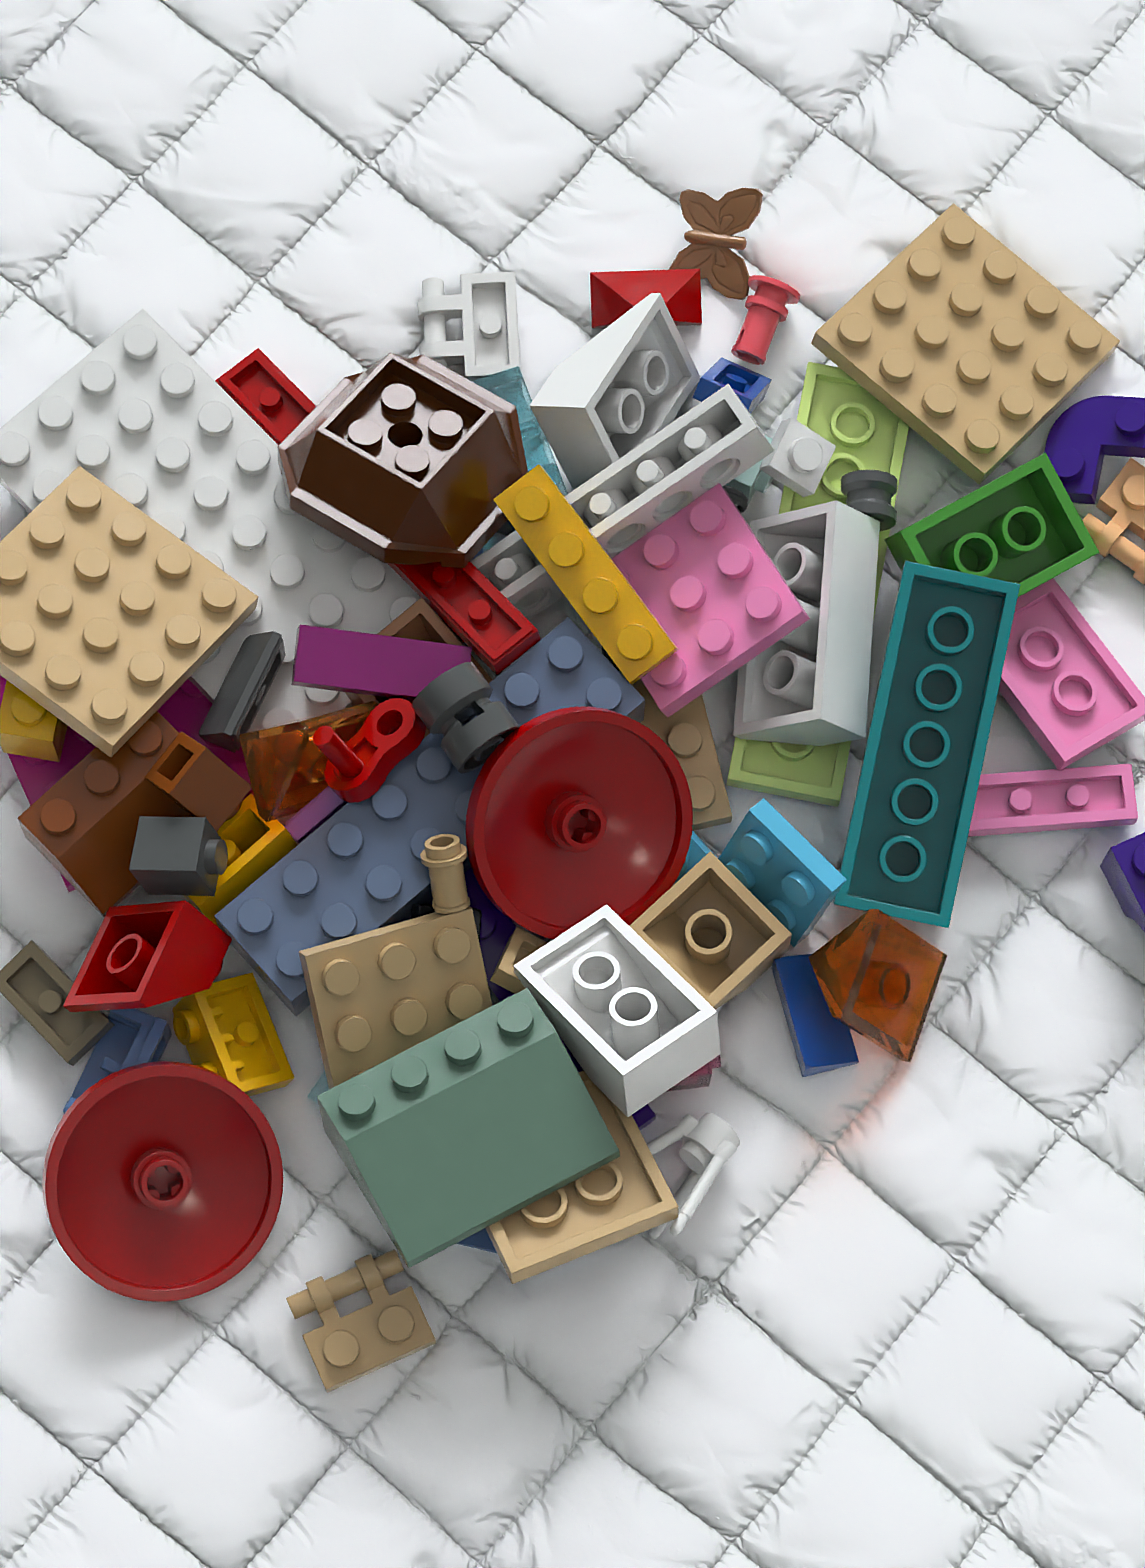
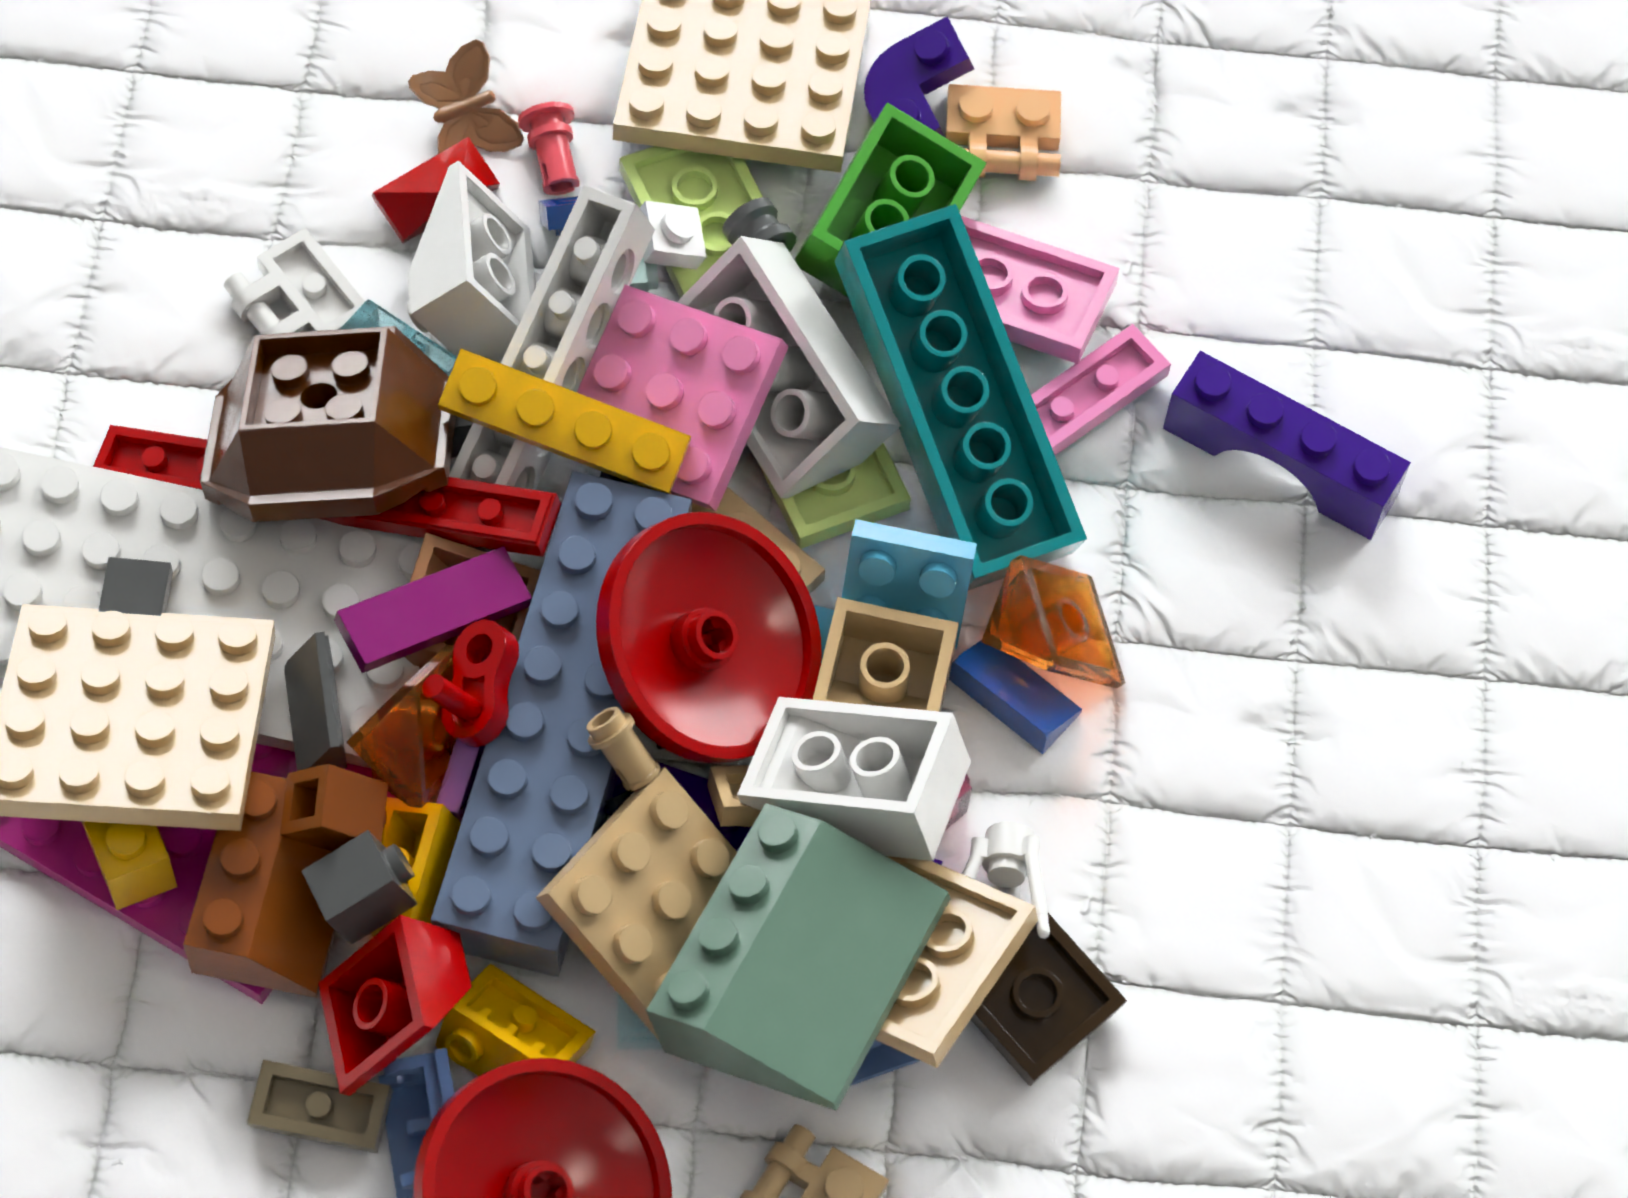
camera: 35 degrees left, 10 degrees down
(173, 505) = (136, 586): none -> dark grey tile
(454, 701) = (530, 592): dark grey wheel -> none
(654, 1281) = (1046, 1003): none -> dark brown plate

